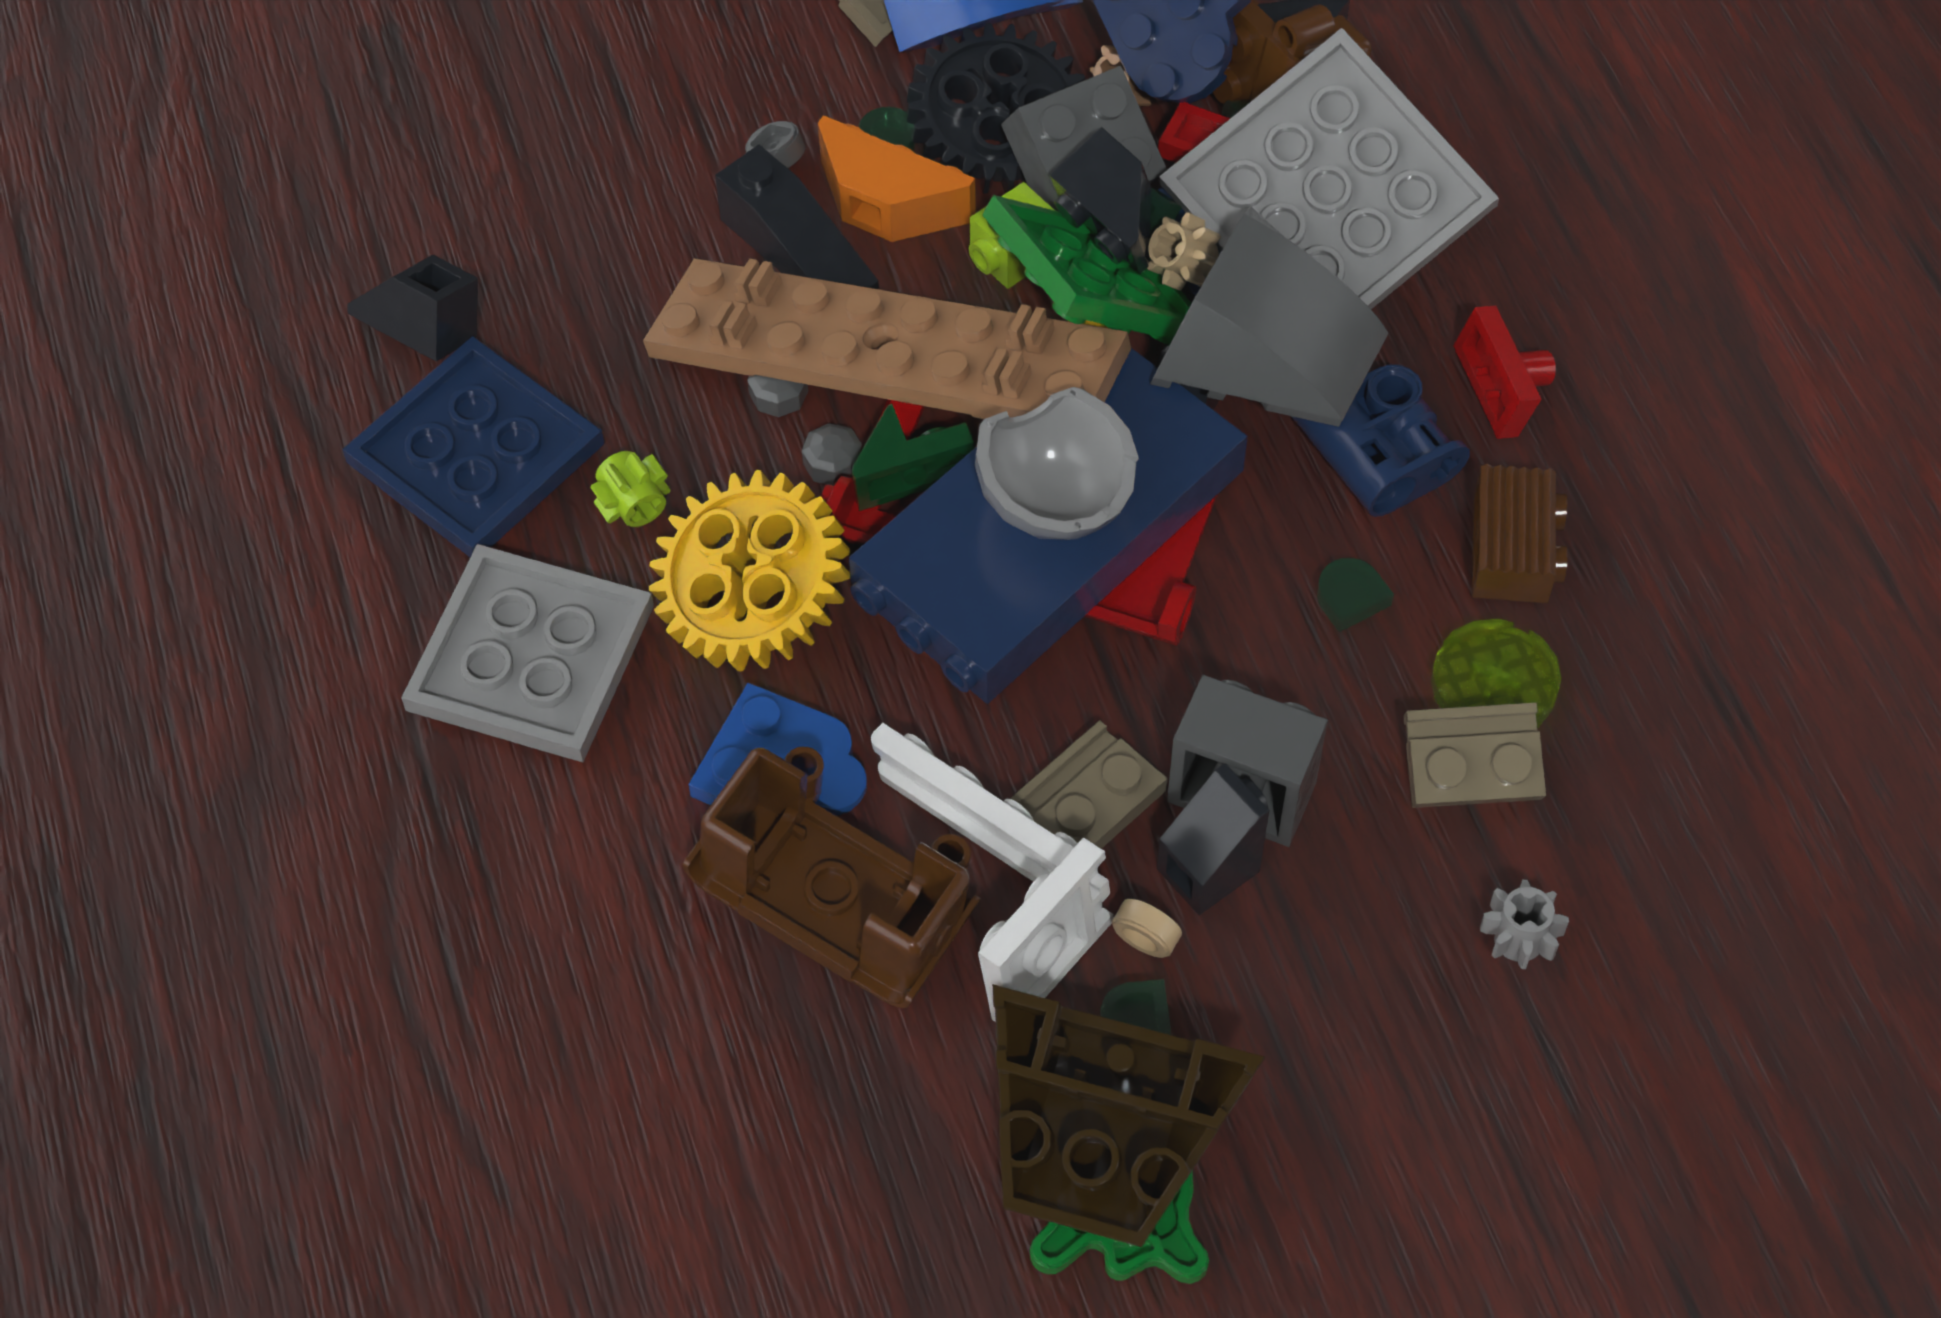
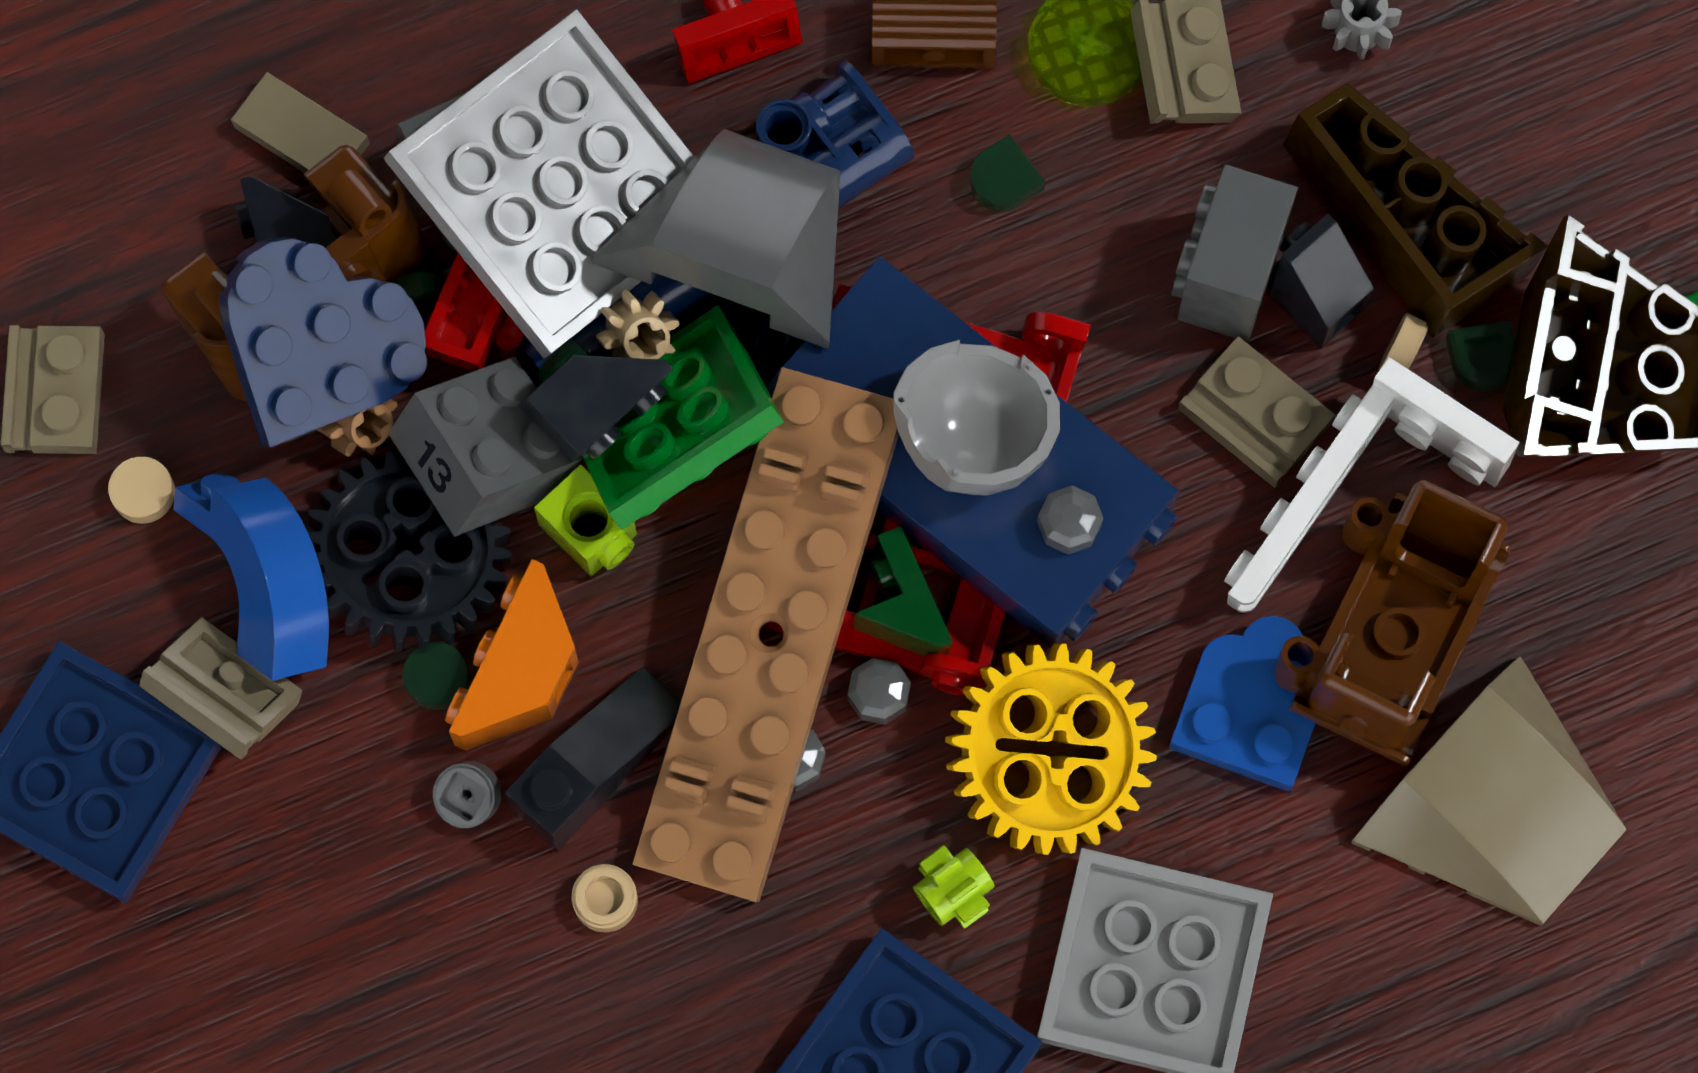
camera: 95 degrees left, 15 degrees up
(651, 980) = (1500, 805): none -> dark tan wedge
(670, 244) = (604, 898): none -> tan tile
(959, 566) = (1070, 520): none -> dark grey tile
(1282, 944) = (1408, 212): none -> dark brown wedge
(1414, 49) = (294, 124): none -> dark tan tile

